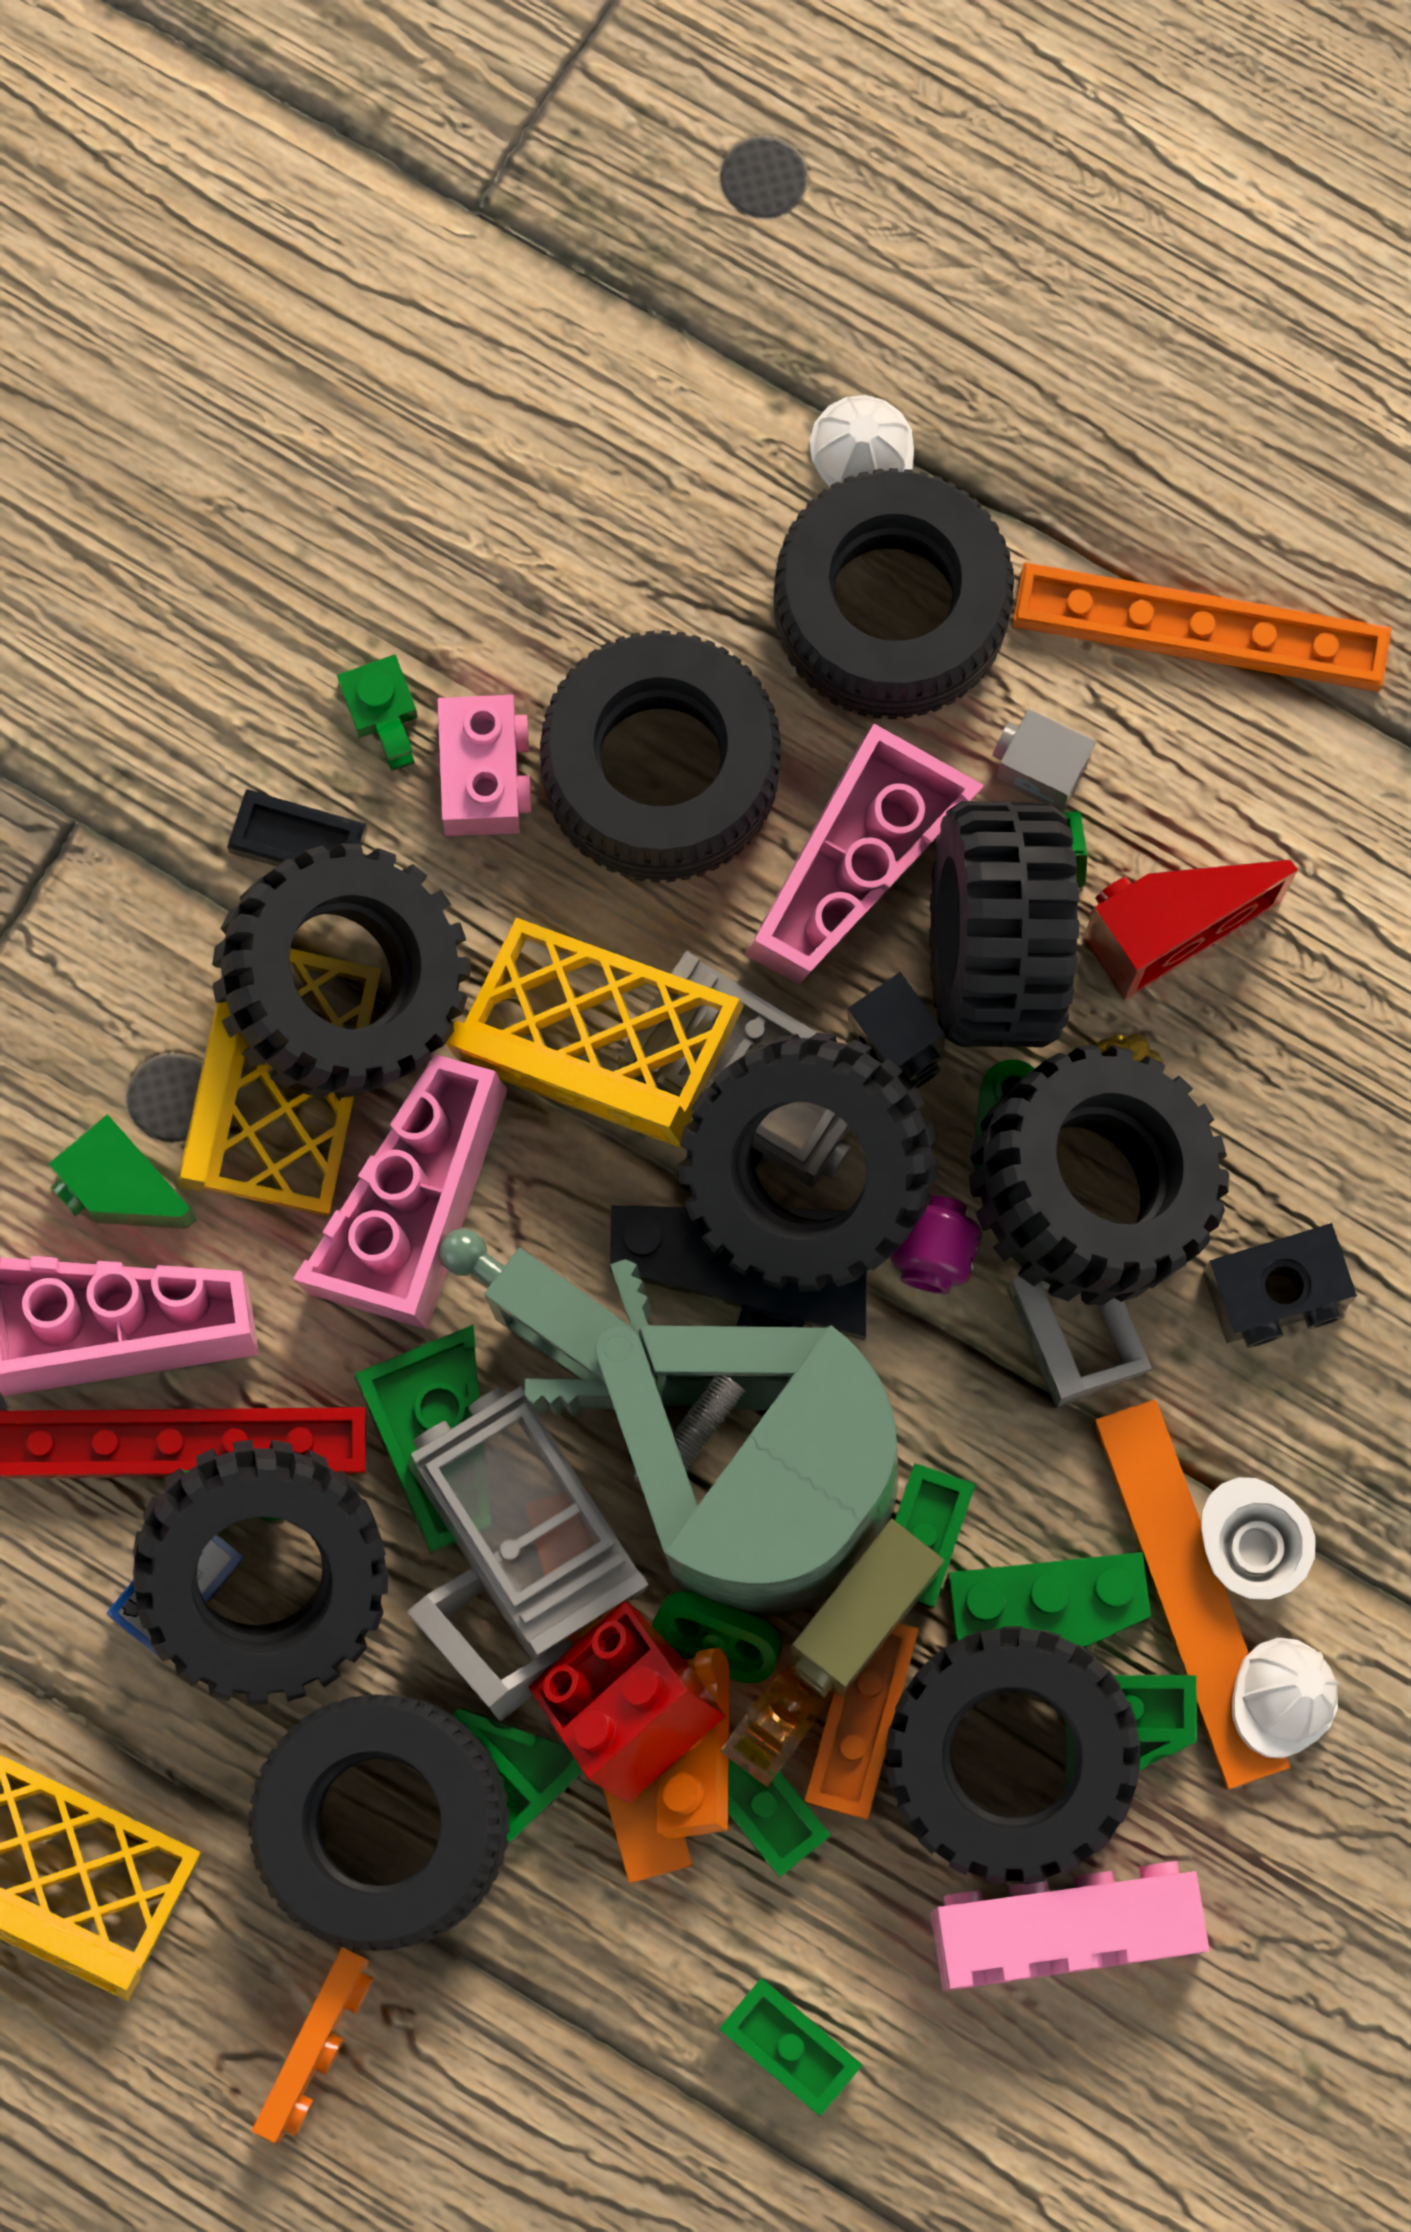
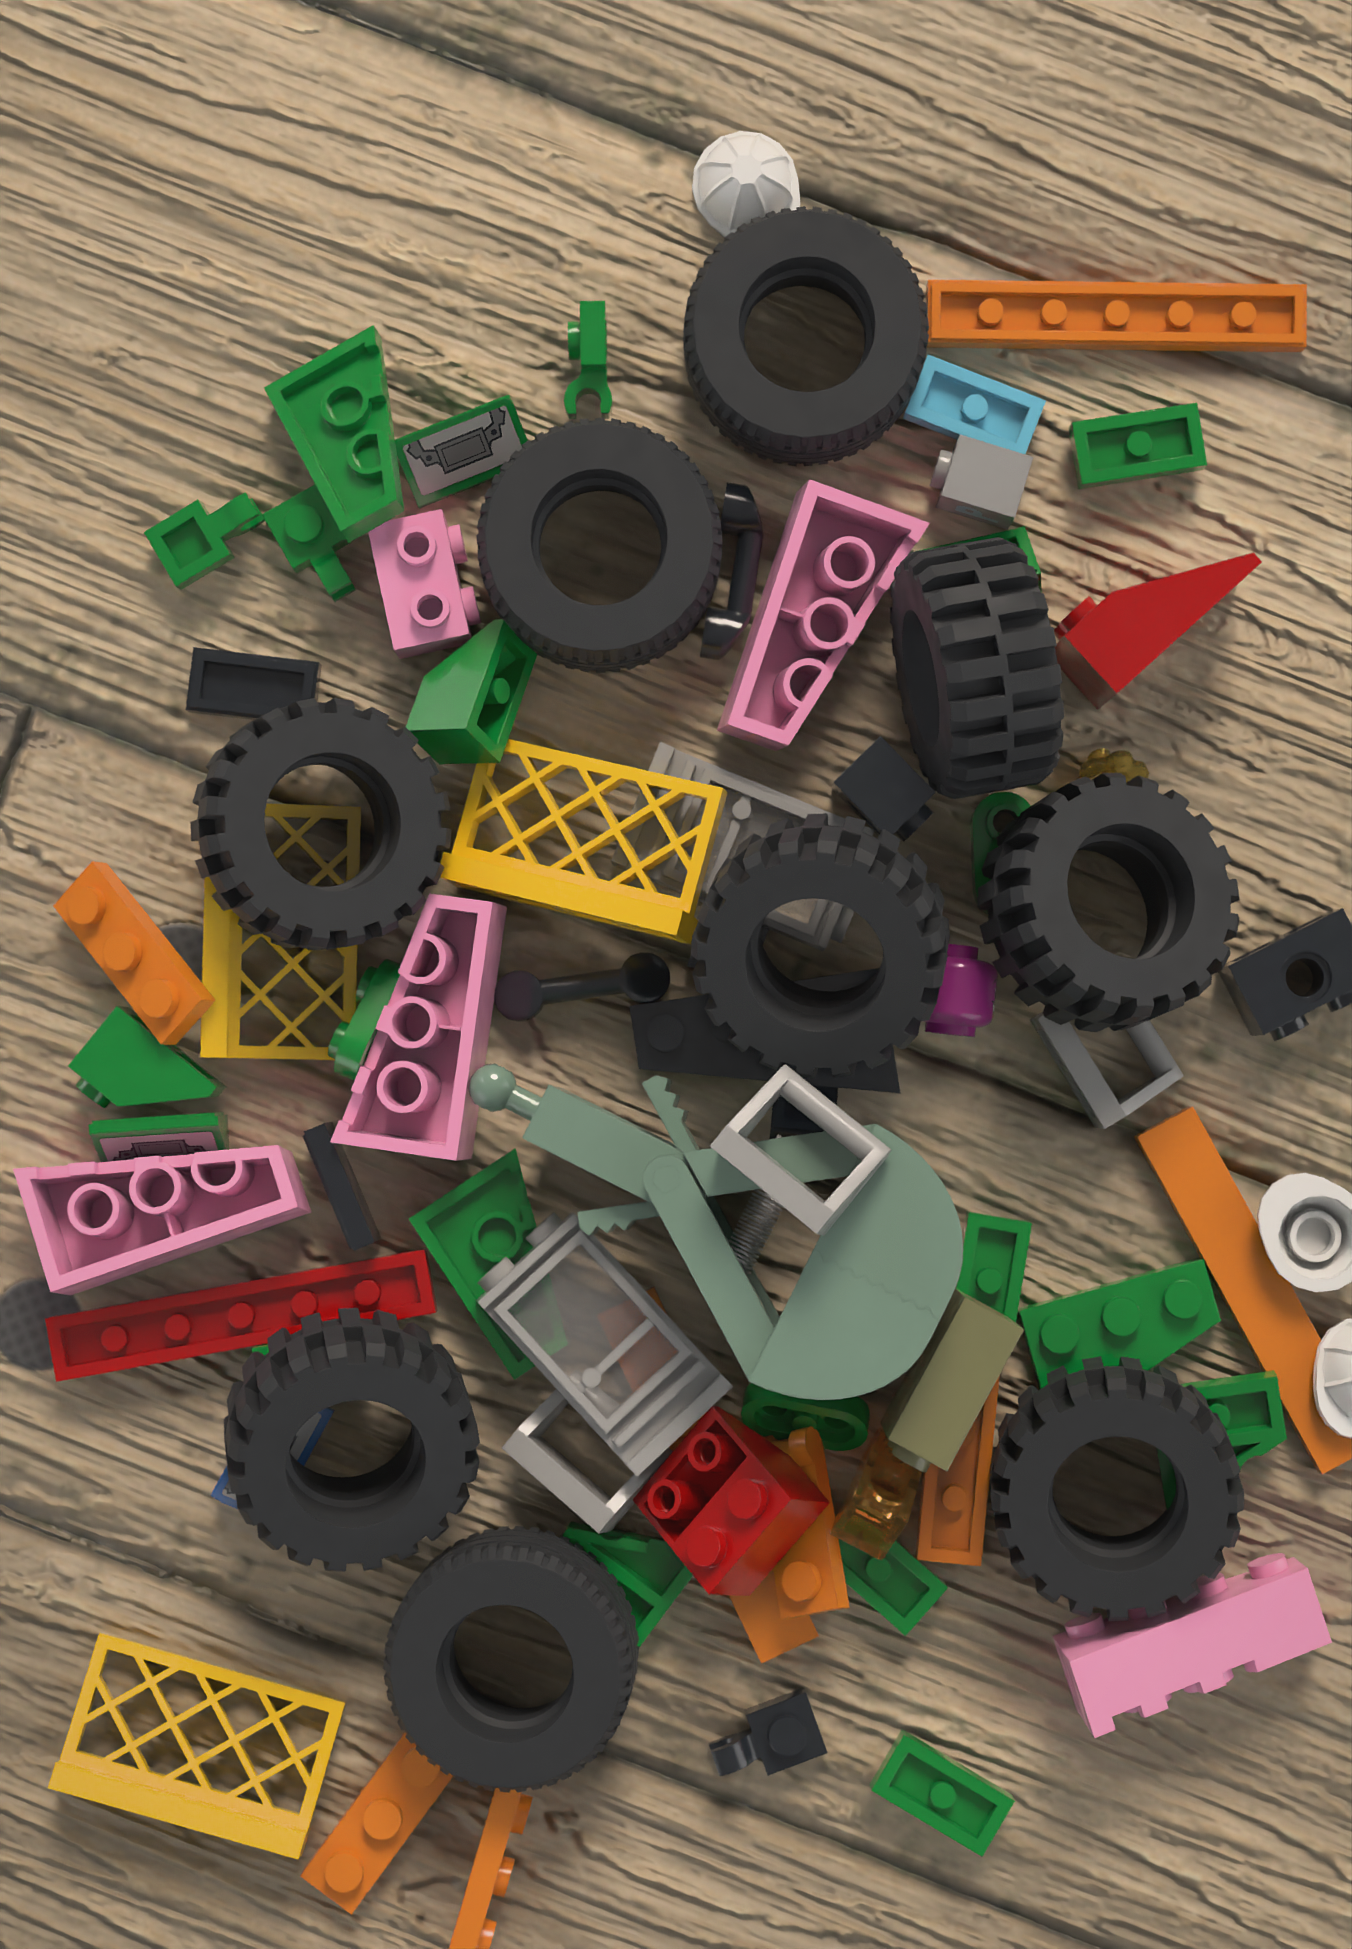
camera: 10 degrees left, 10 degrees up
(116, 1244) = (159, 1136): none -> slope
(133, 1068) = (134, 953): none -> orange plate
(215, 1977) = (375, 1825): none -> orange plate
(267, 689) = (195, 542): none -> green plate
(293, 1331) = (341, 1187): none -> black tile
(333, 1187) = (354, 1039): none -> green plate
(432, 608) = (345, 431): none -> green wing
(507, 1178) = (522, 995): none -> black bar
(511, 879) = (473, 698): none -> green slope
(538, 646) = (460, 450): none -> slope
(636, 1961) = (779, 1733): none -> black plate
(683, 567) = (589, 344): none -> green plate
(758, 1394) = (773, 1177): none -> light grey tile
(769, 856) = (741, 519): none -> black bar
(1036, 680) = (973, 406): none -> medium azure plate
(1202, 752) = (1137, 446): none -> green plate

